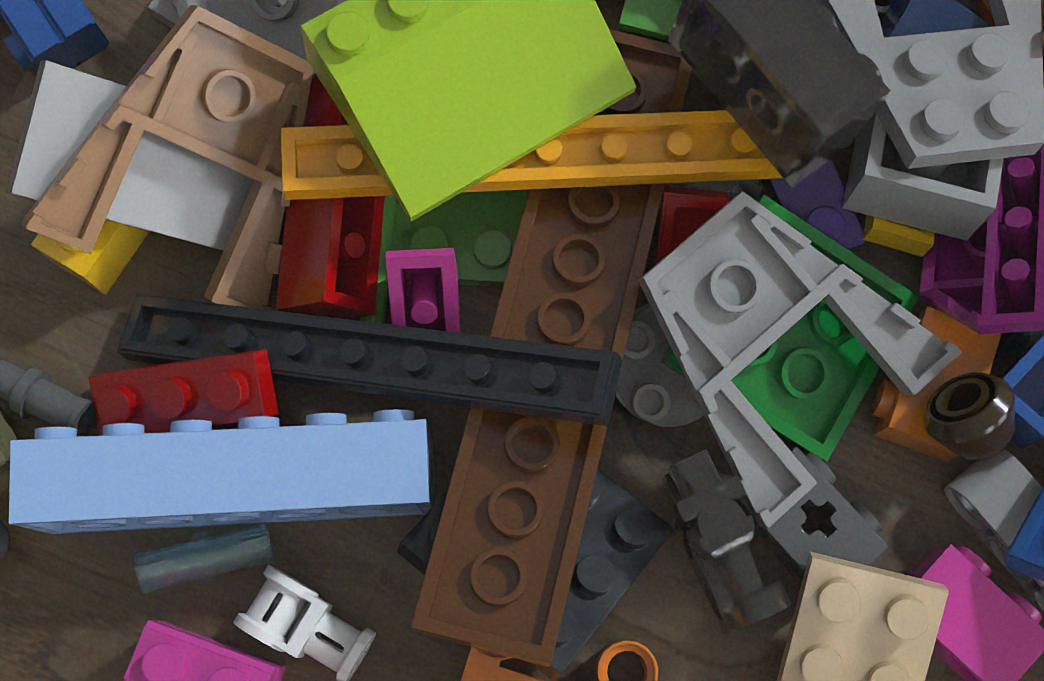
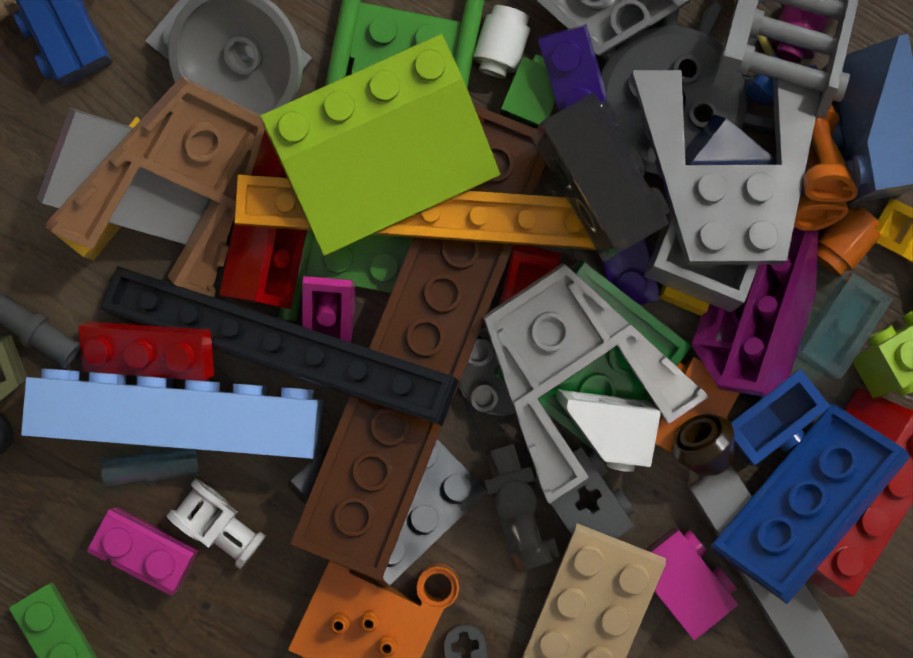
camera: 10 degrees right, 10 degrees up
(838, 414) = (615, 427): none -> white slope

